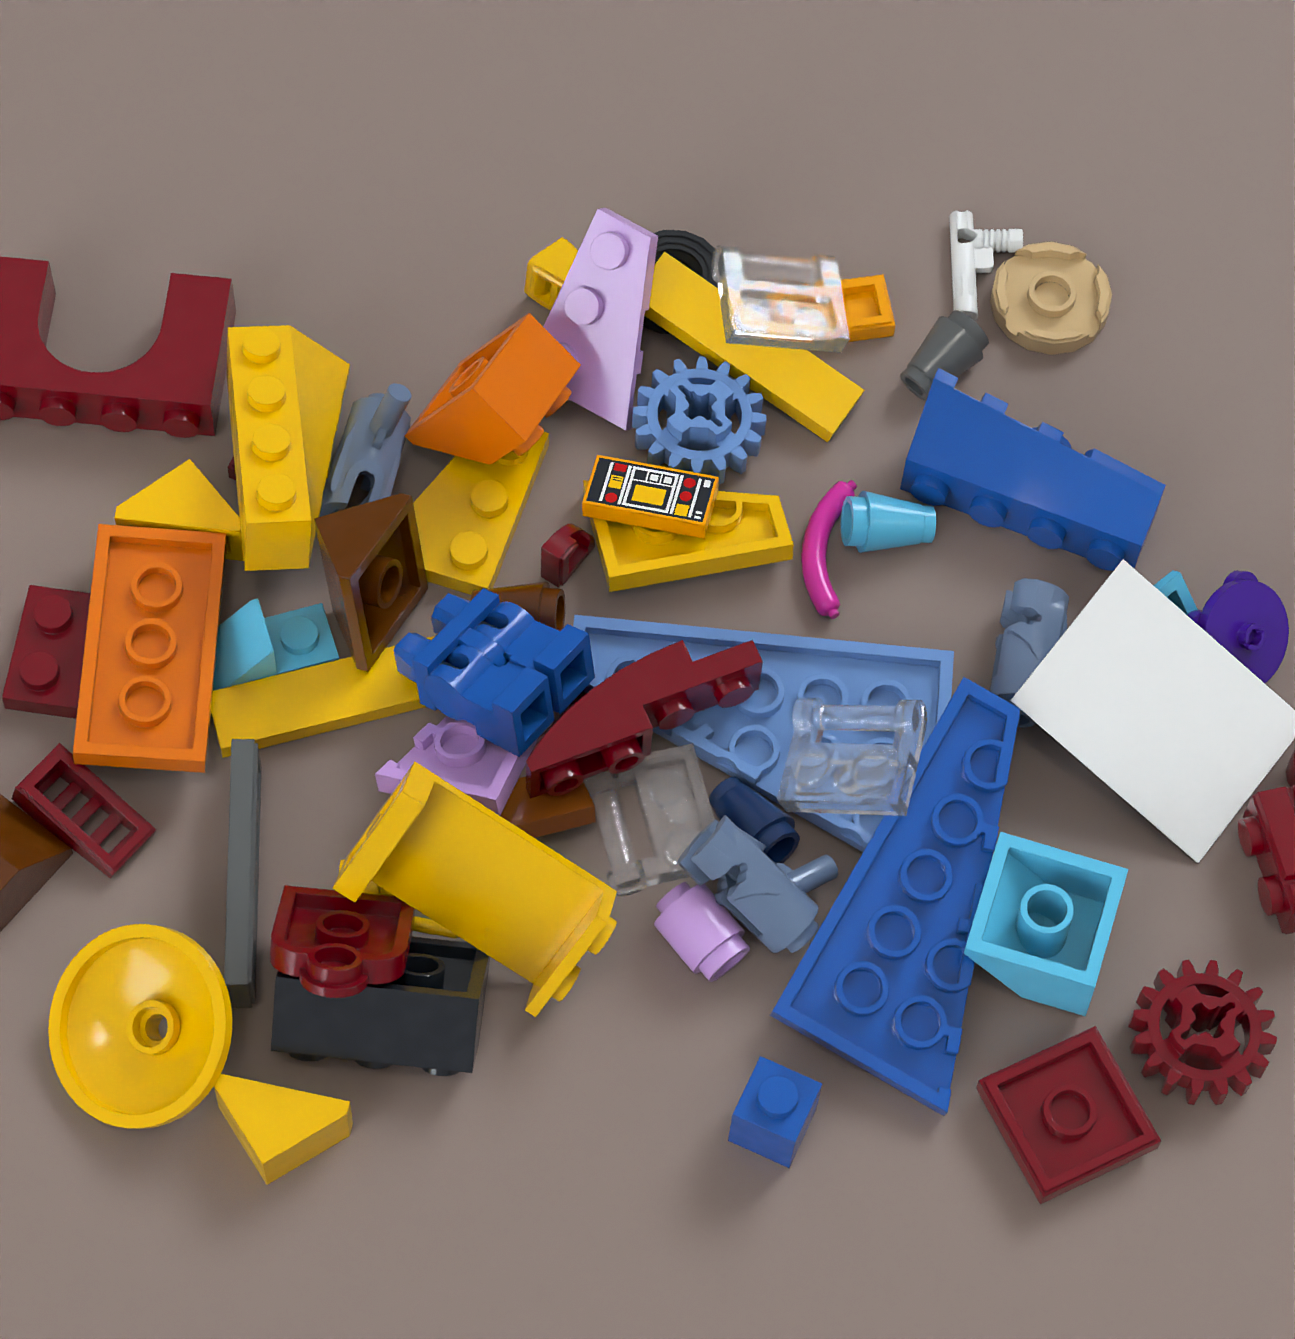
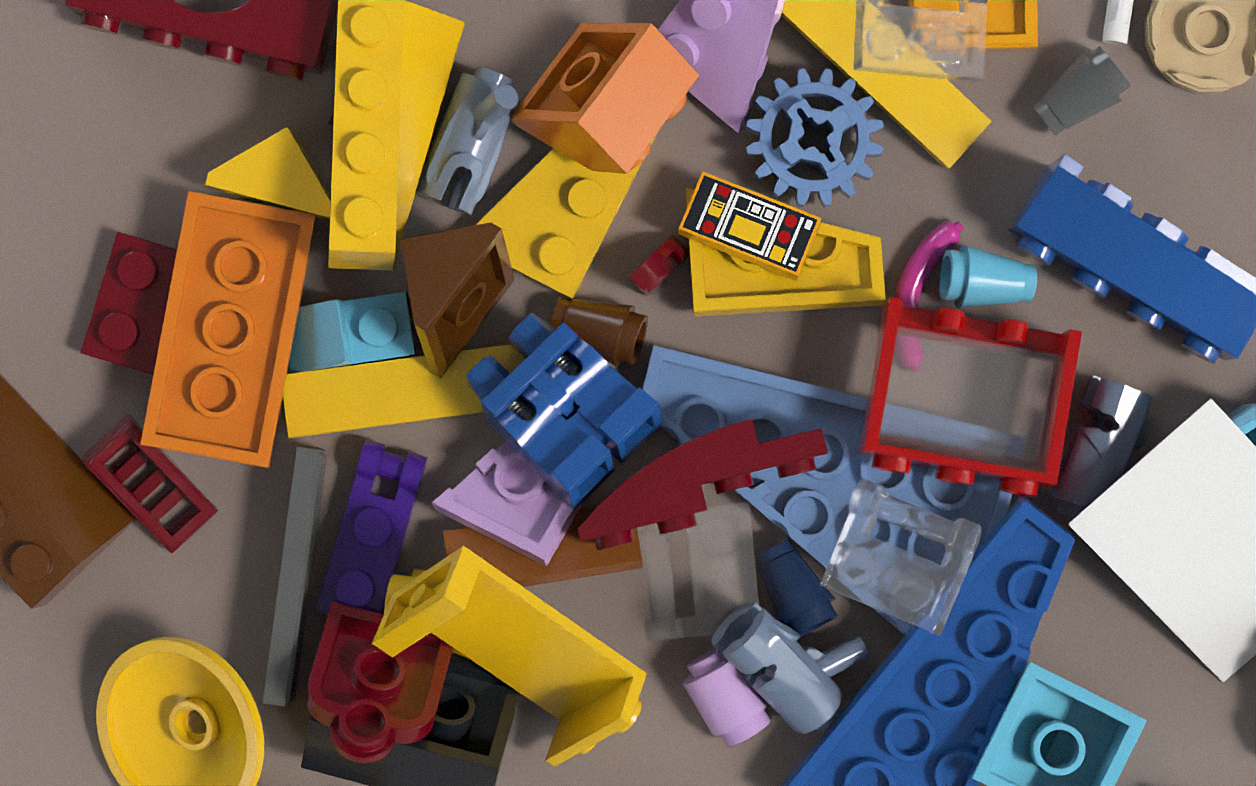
camera: 15 degrees right, 25 degrees up
(316, 821) = (372, 530): none -> dark purple plate
(890, 614) = (969, 398): none -> window

